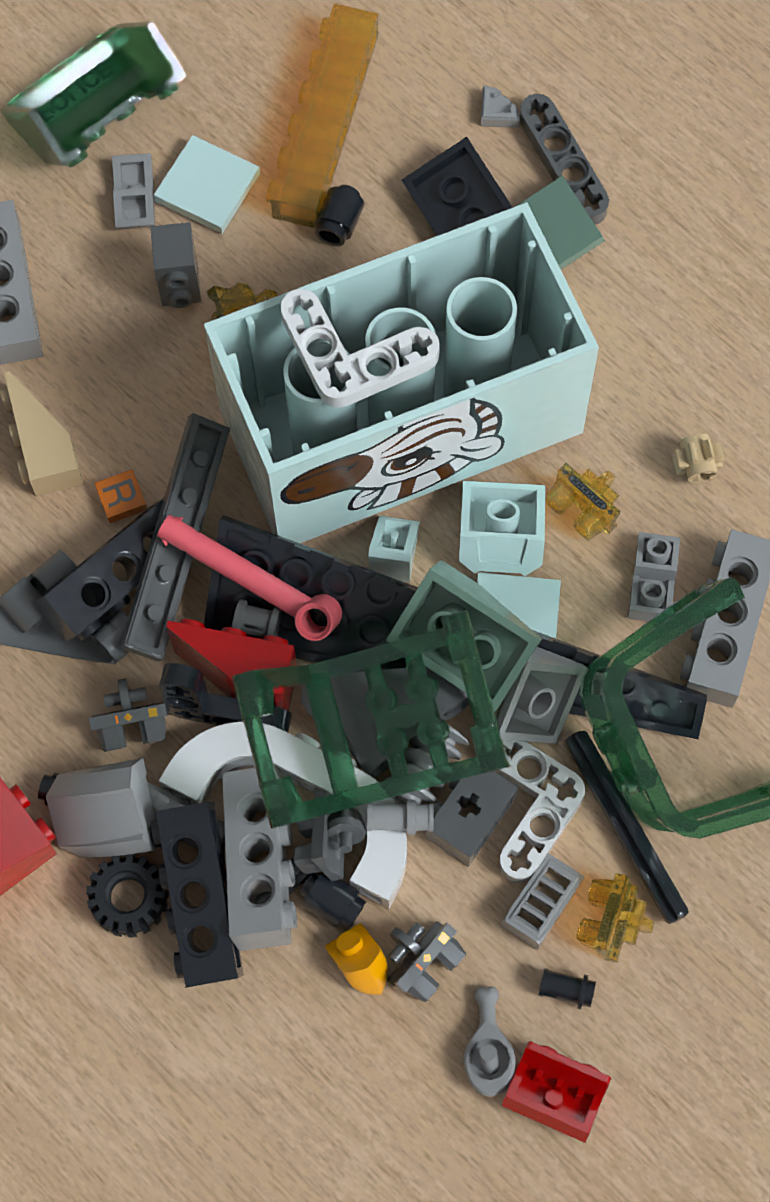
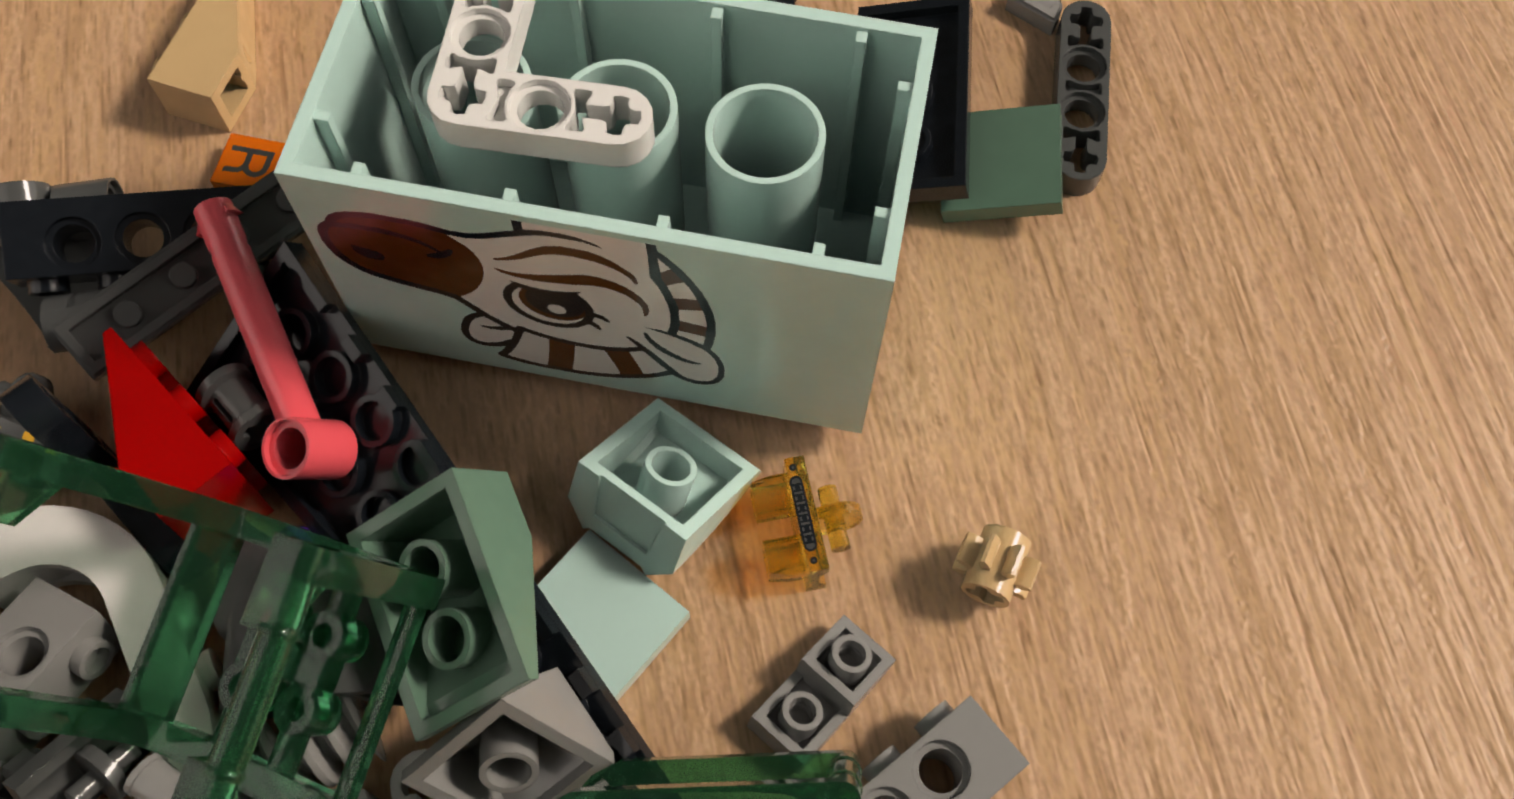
camera: 30 degrees right, 5 degrees down
(393, 547) = (505, 425): light aqua slope -> none

